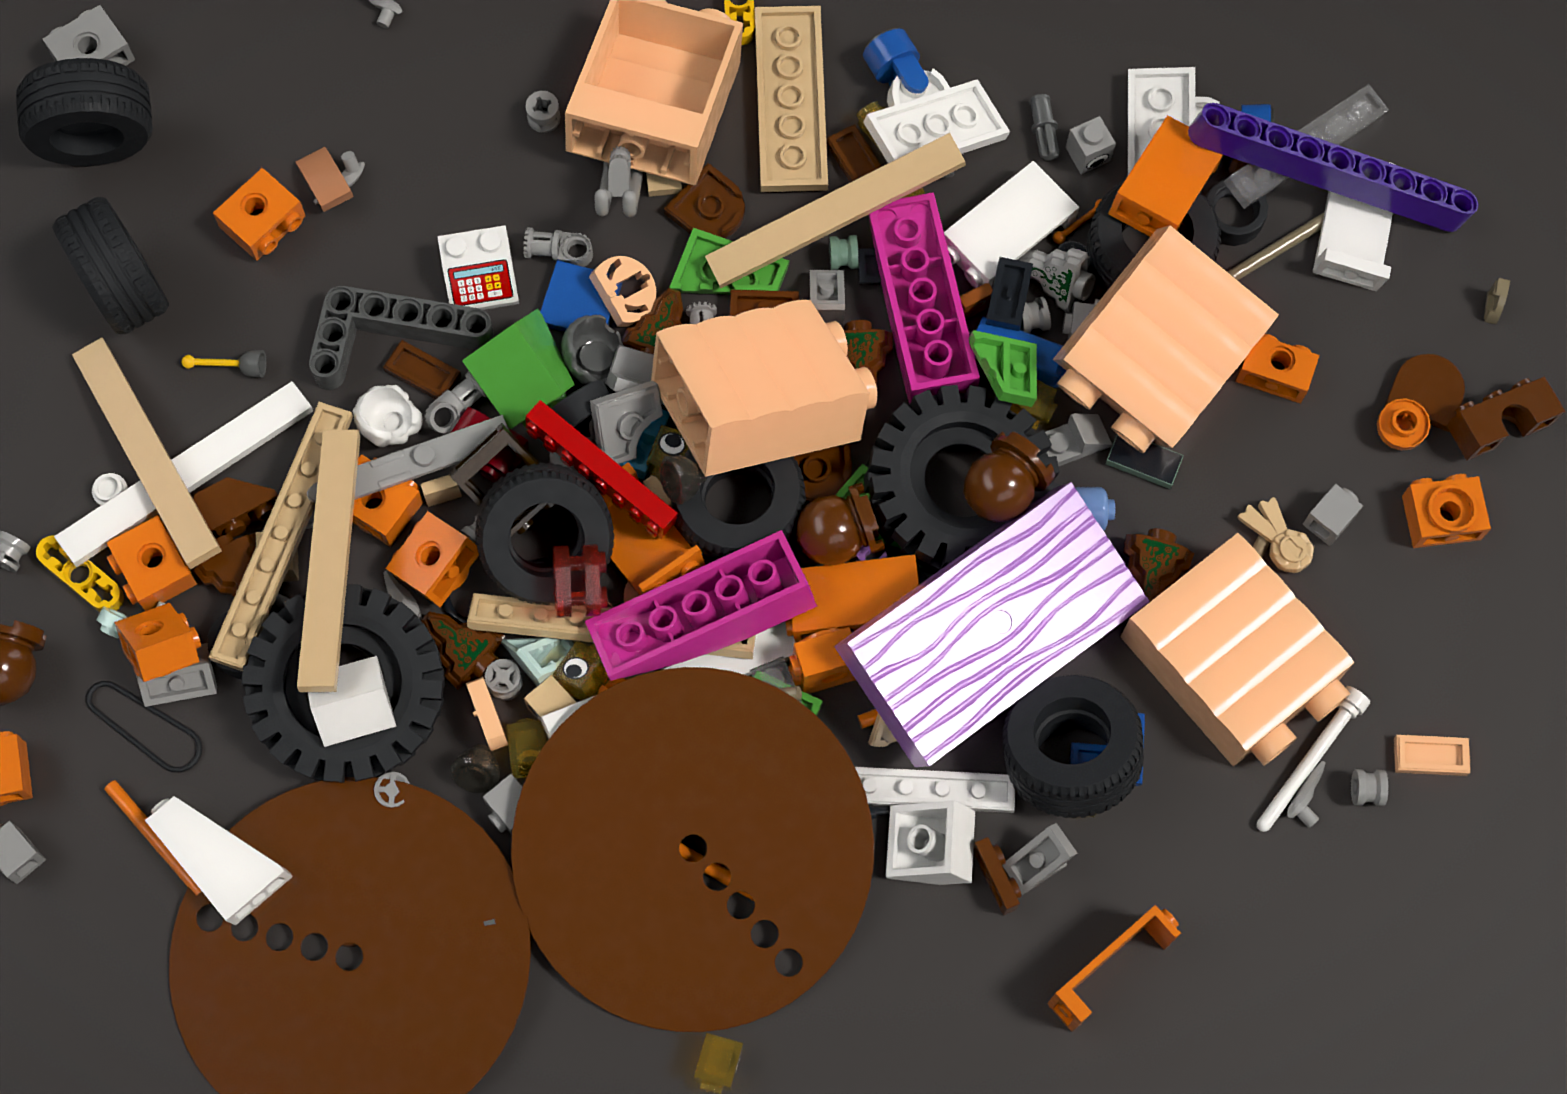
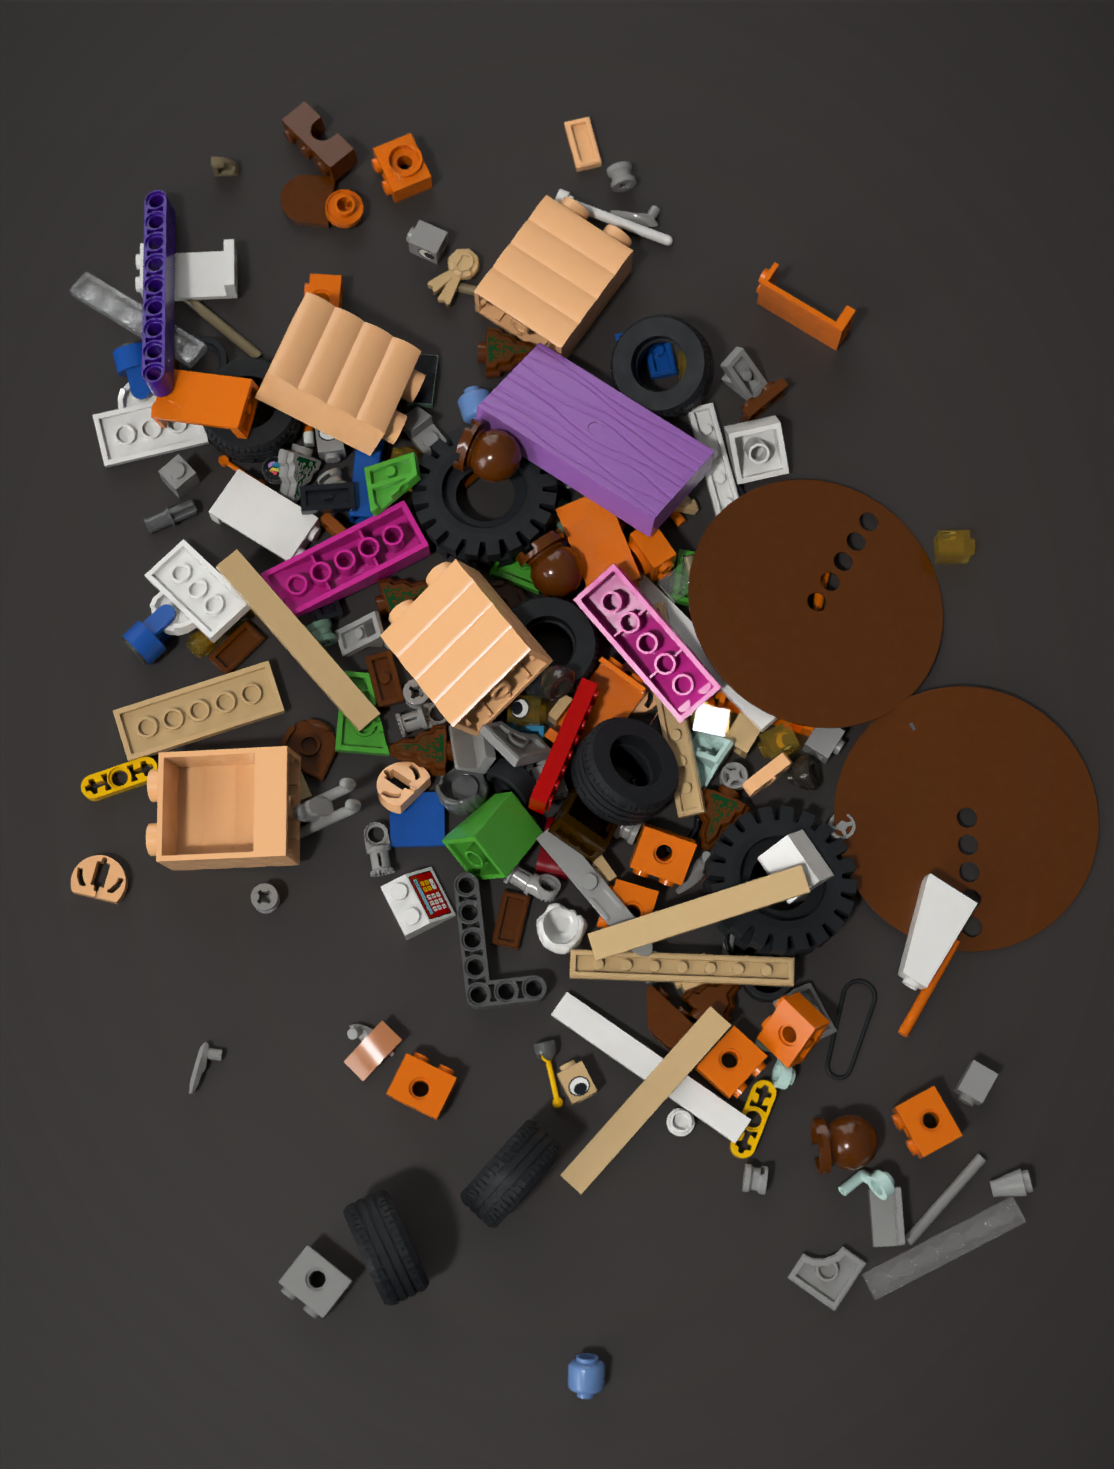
camera: 105 degrees left, 5 degrees up
(200, 384) = (576, 1082): none -> tan brick
(591, 564) = (657, 730): clear red brick -> none

